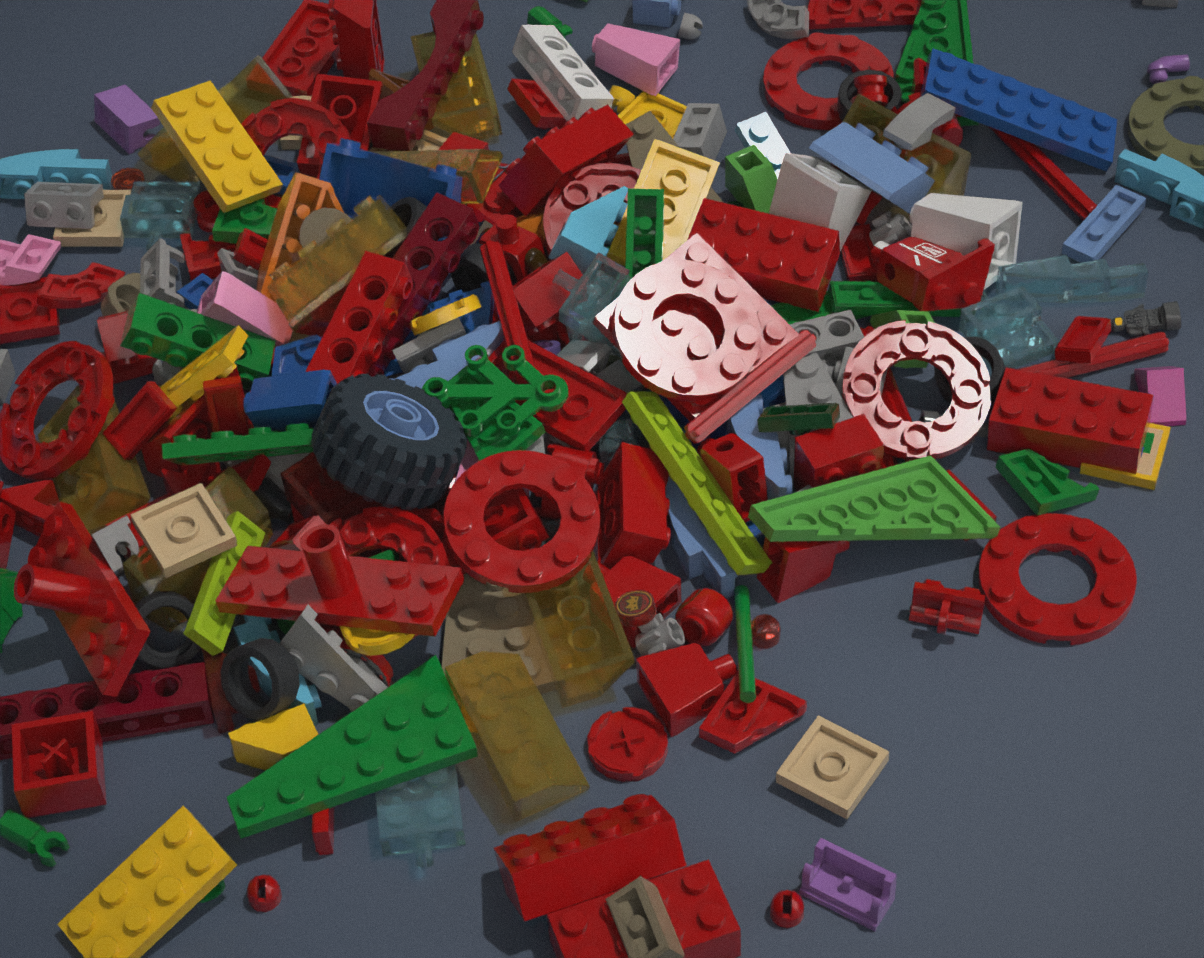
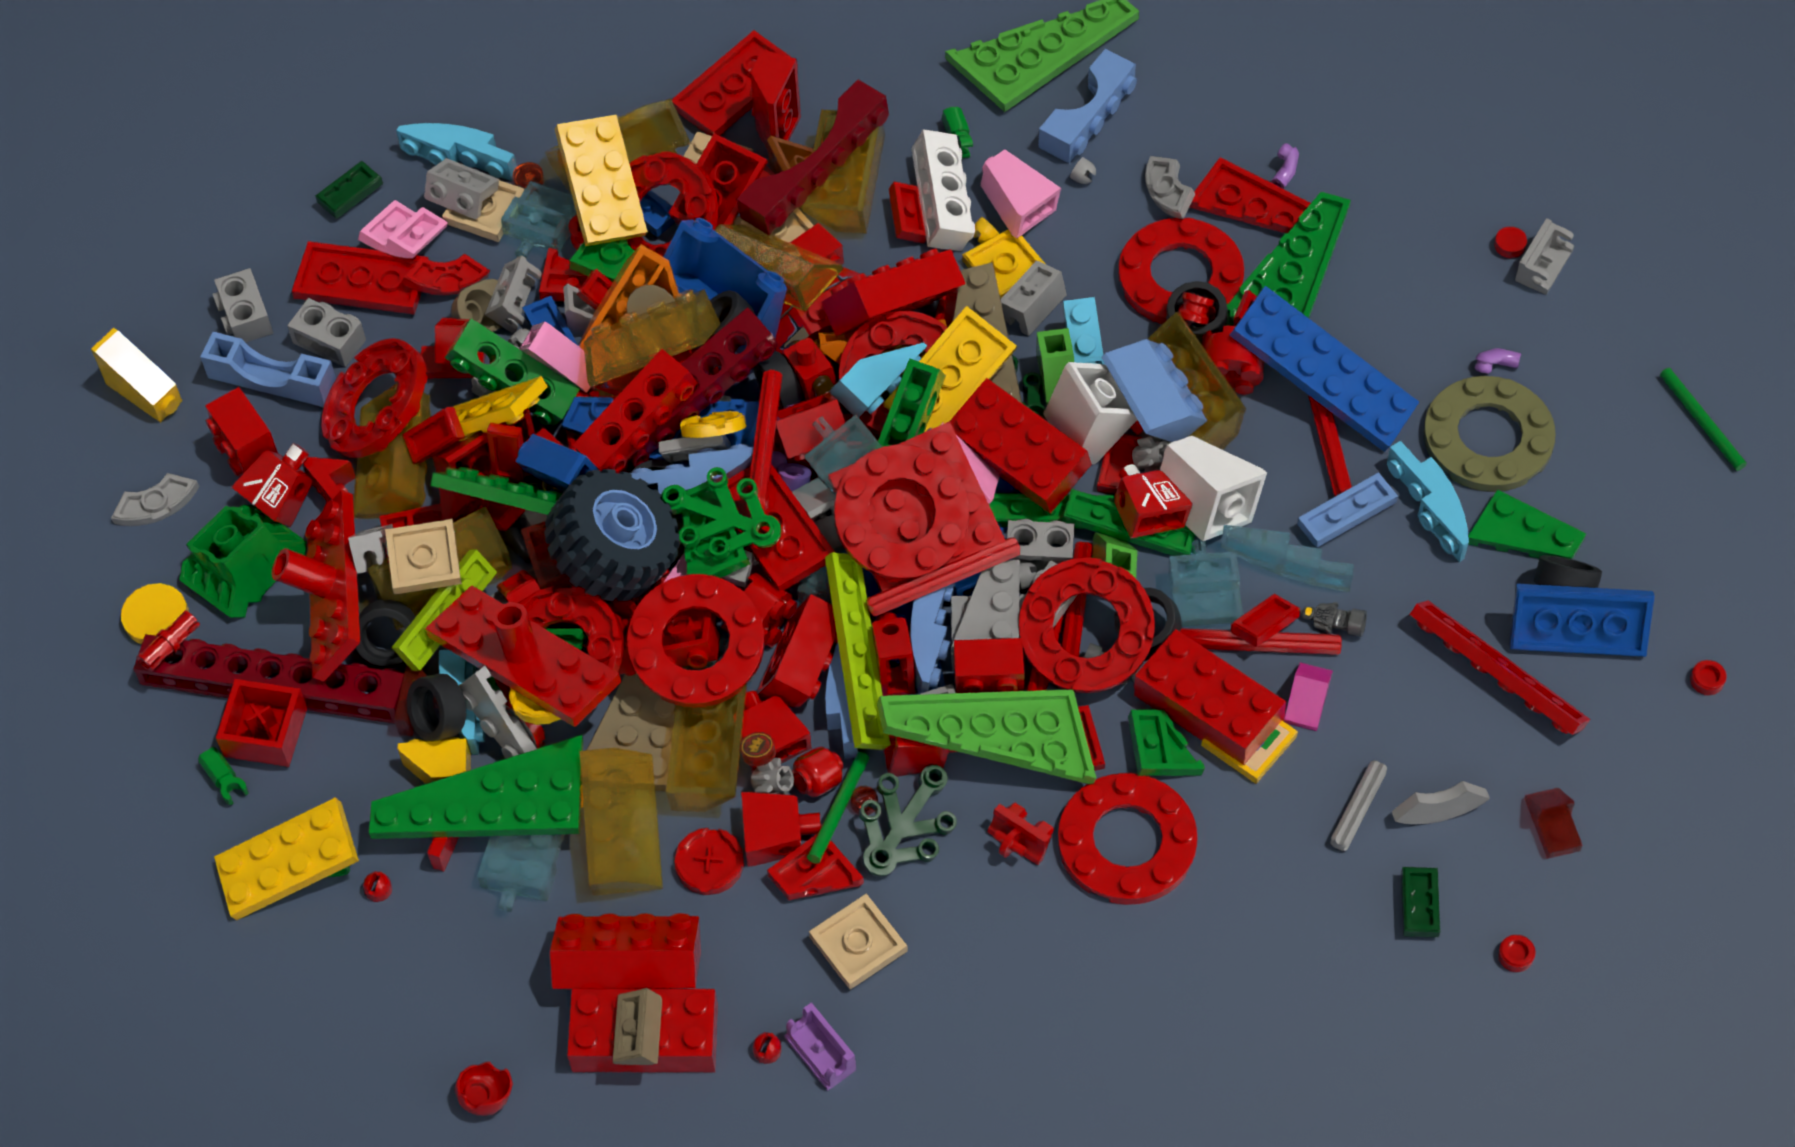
camera: 20 degrees right, 10 degrees up
(124, 117) = (548, 106): medium lavender hinge -> none
(799, 418) = (967, 622): dark green plate -> none
(818, 637) = (902, 824): none -> dark green plant
(916, 122) = (1210, 360): light grey slope -> none
(955, 282) = (1172, 530): red wing -> none

